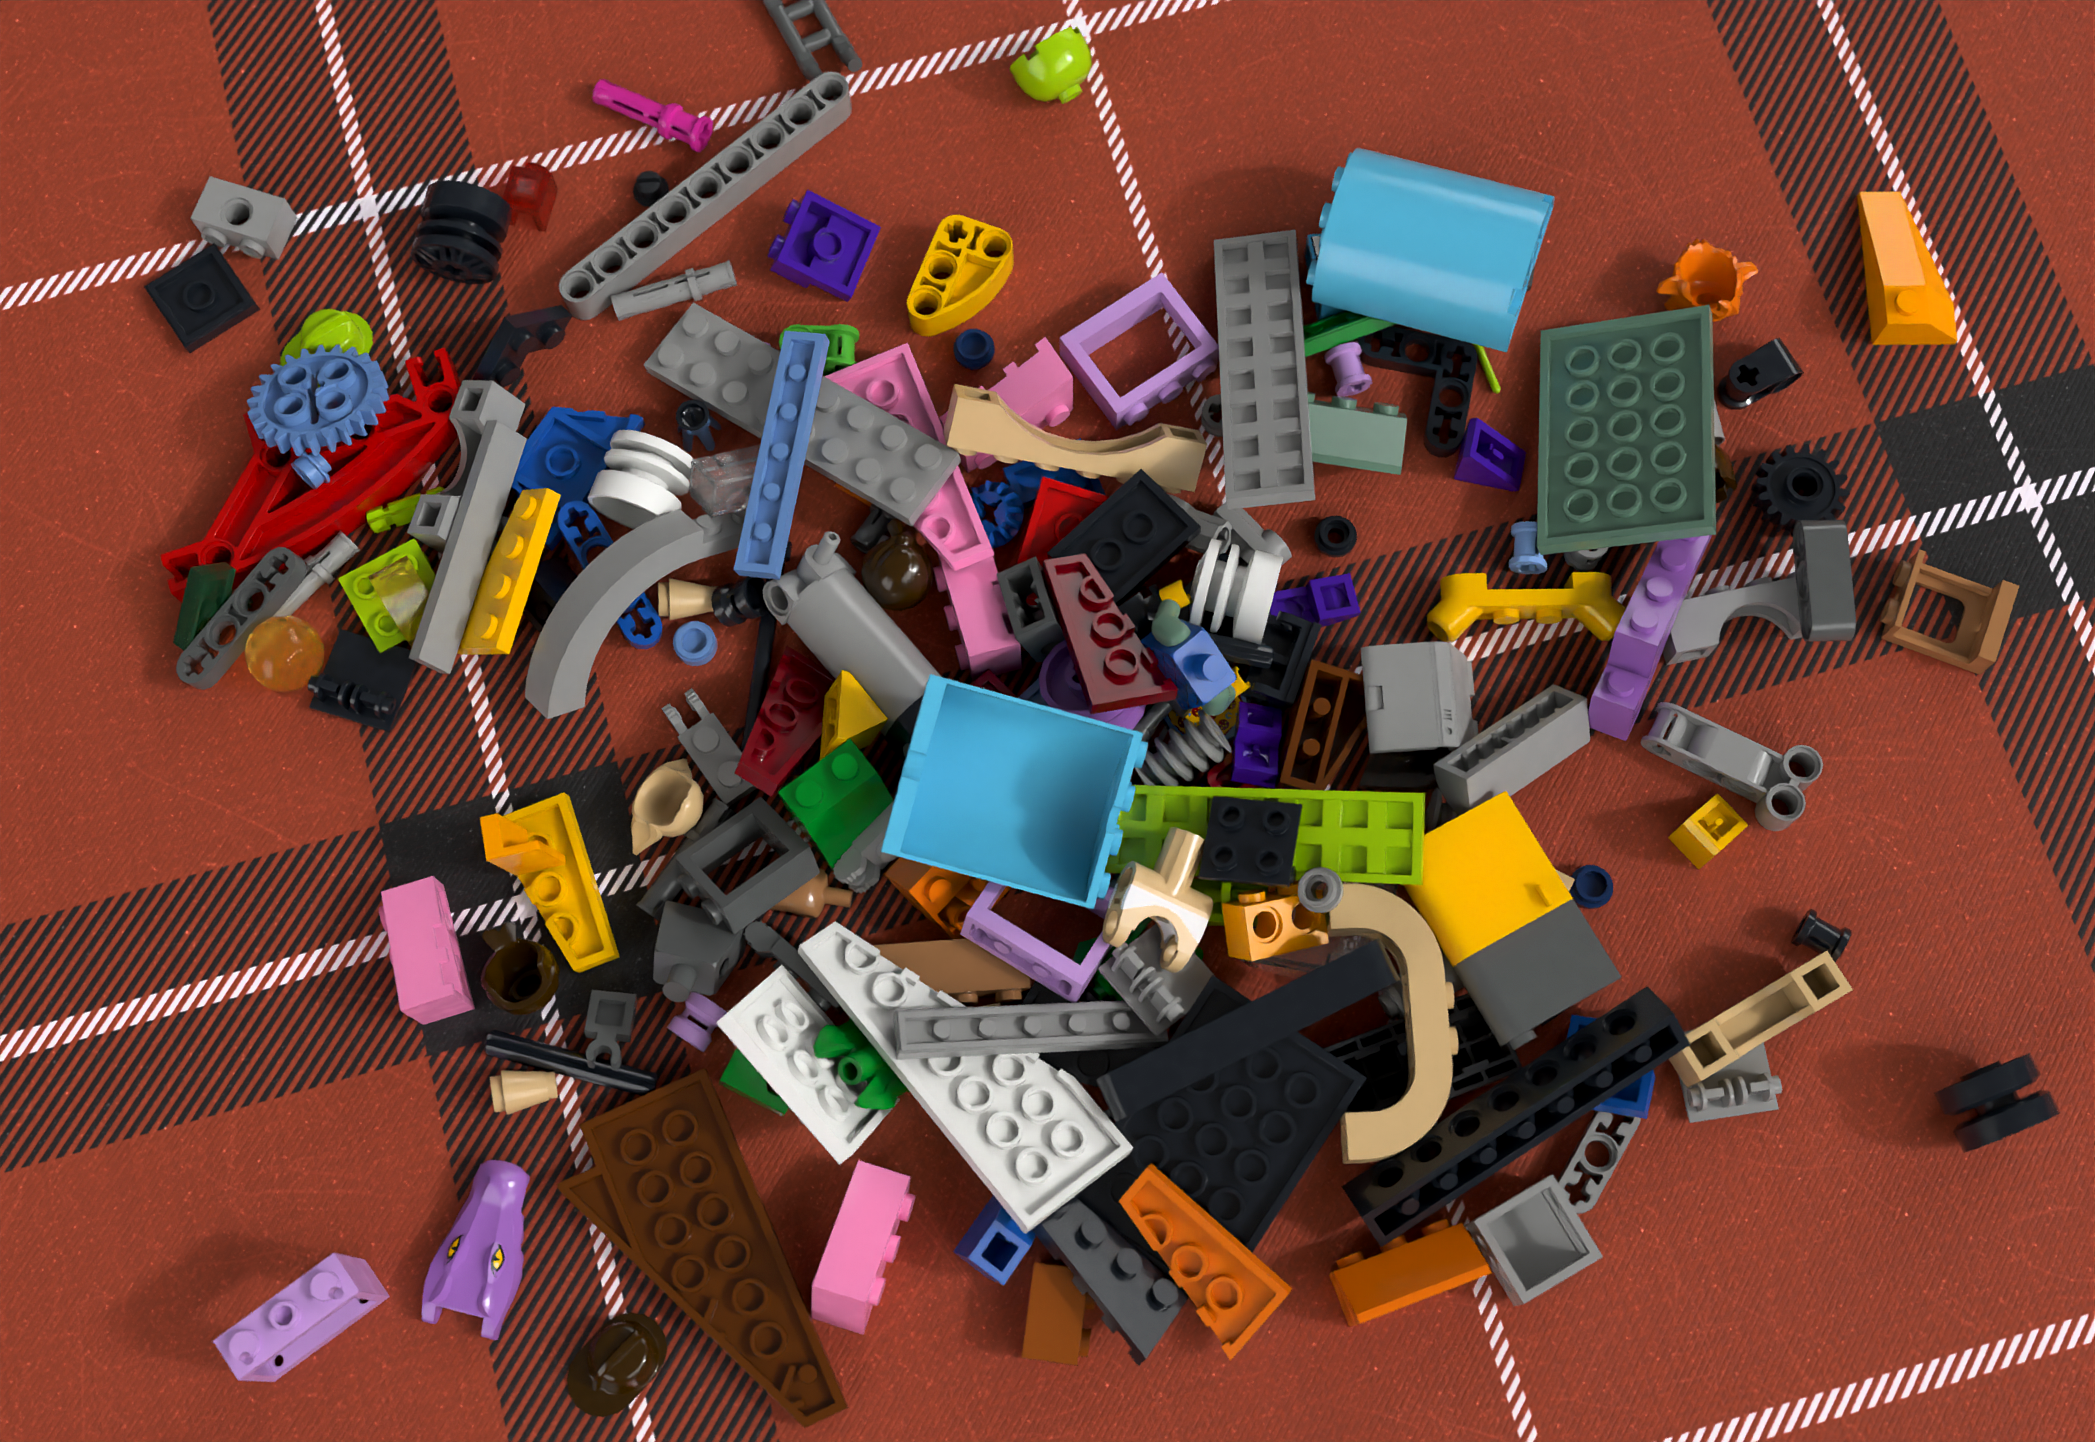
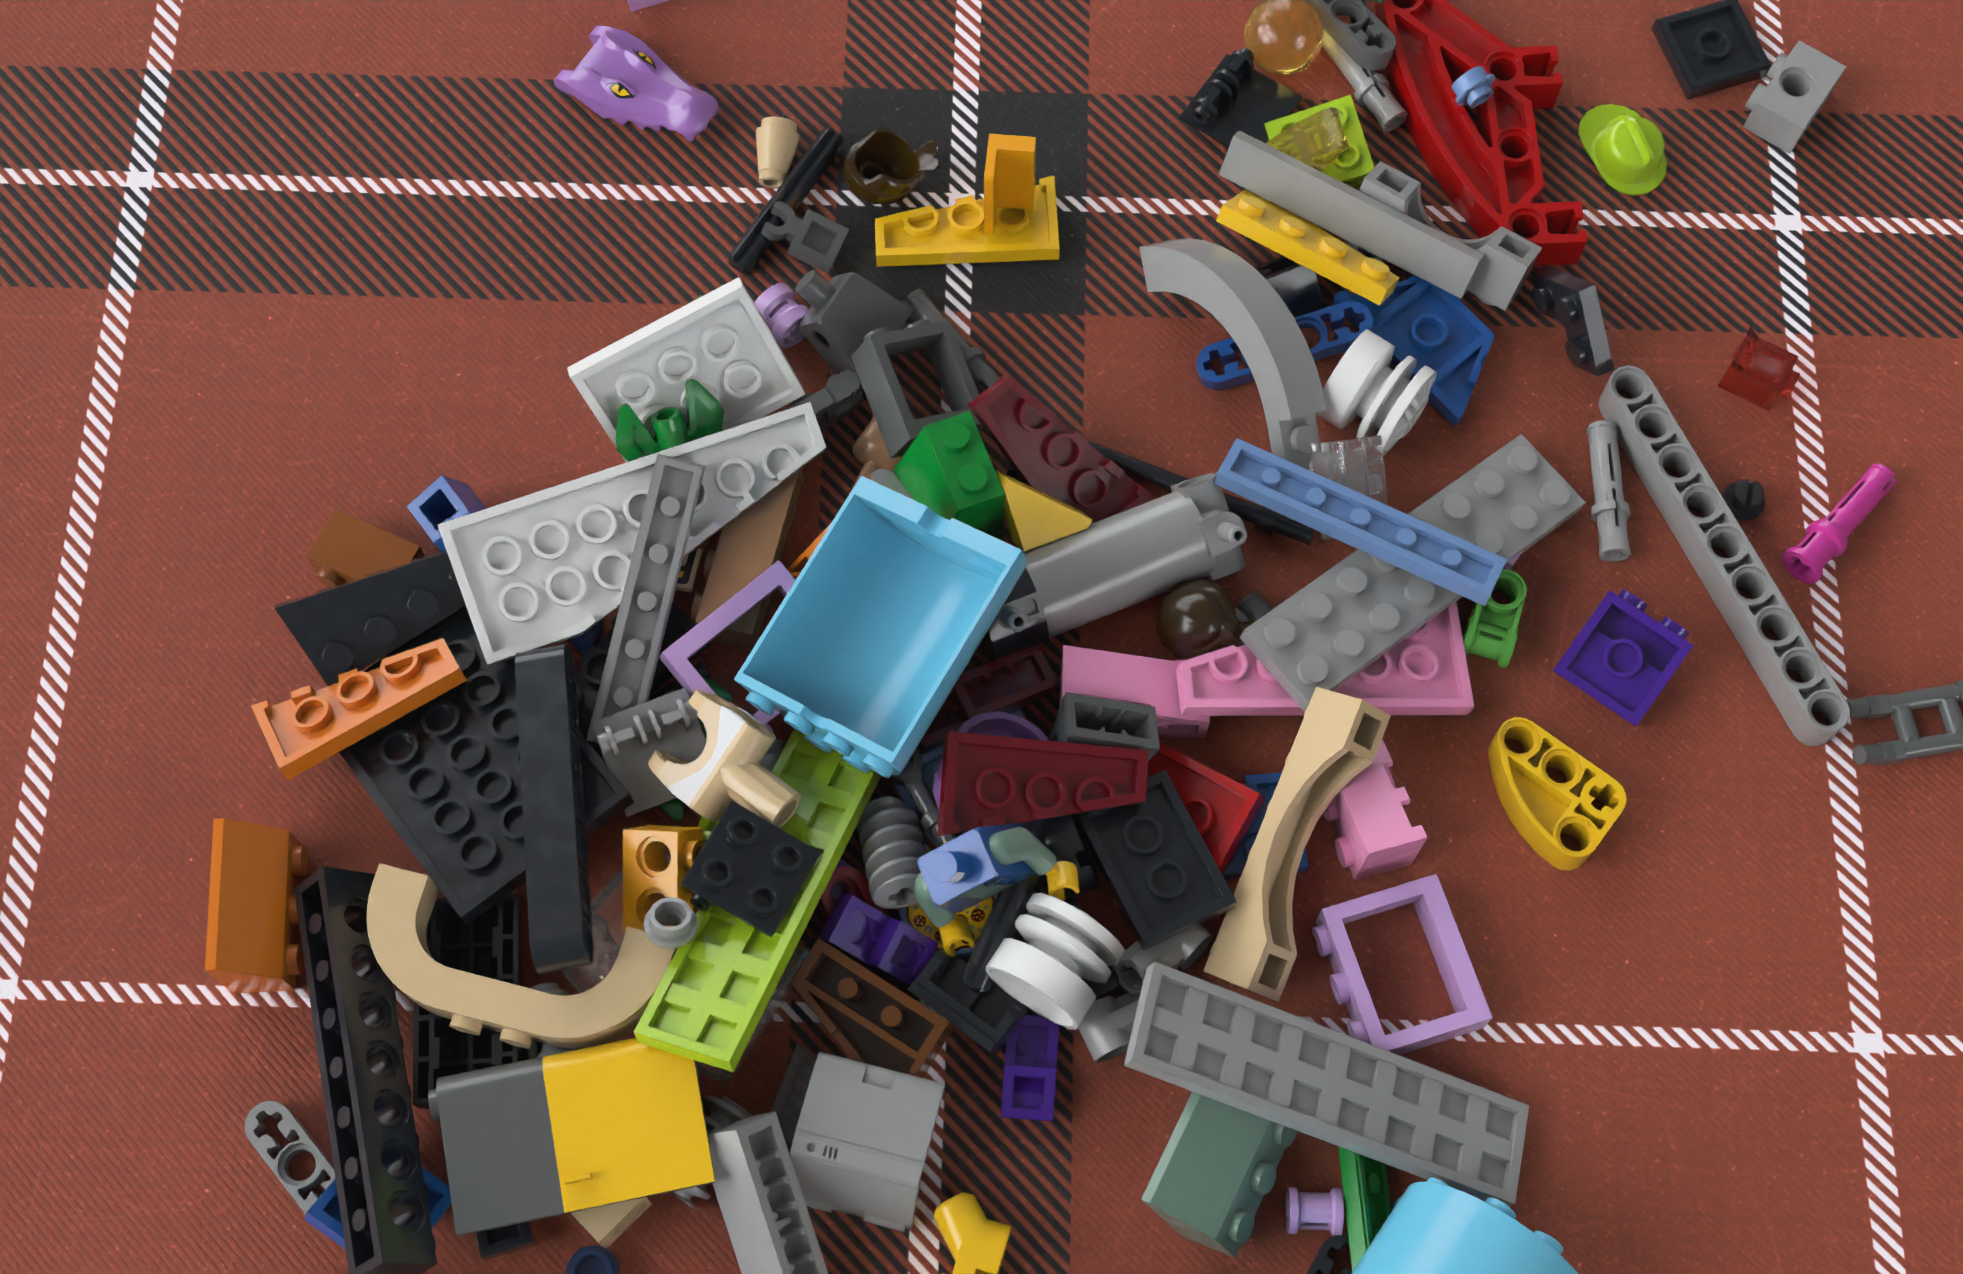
camera: 105 degrees right, 5 degrees down
(347, 399) = (1550, 106): medium blue gear -> none
(398, 512) = (1414, 164): lime axle -> none
(425, 951) = (937, 92): bright pink wedge -> none
(461, 232) = (1722, 285): black wheel -> none
(616, 1364) = (492, 178): dark brown piece -> none
(665, 805) = (1016, 337): tan piece -> none
(683, 599) = (1237, 411): tan cone -> none
(692, 1220) = (579, 271): reddish brown wing -> none
(694, 420) = (1438, 463): piece -> none
(695, 643) = (1187, 414): medium blue tile -> none
(711, 750) = (1075, 394): light grey hinge -> none
(739, 601) = (1210, 452): black wheel -> none
(860, 1247) = (505, 398): bright pink wedge -> none
(974, 349) = (1455, 788): dark blue plate -> none
(1008, 514) = (1233, 757): blue gear -> none
(1055, 67) = (1804, 981): lime cylinder -> none
(1338, 525) = (1113, 1110): black plate -> none
(1533, 1241) = (233, 1050): light grey piece -> none

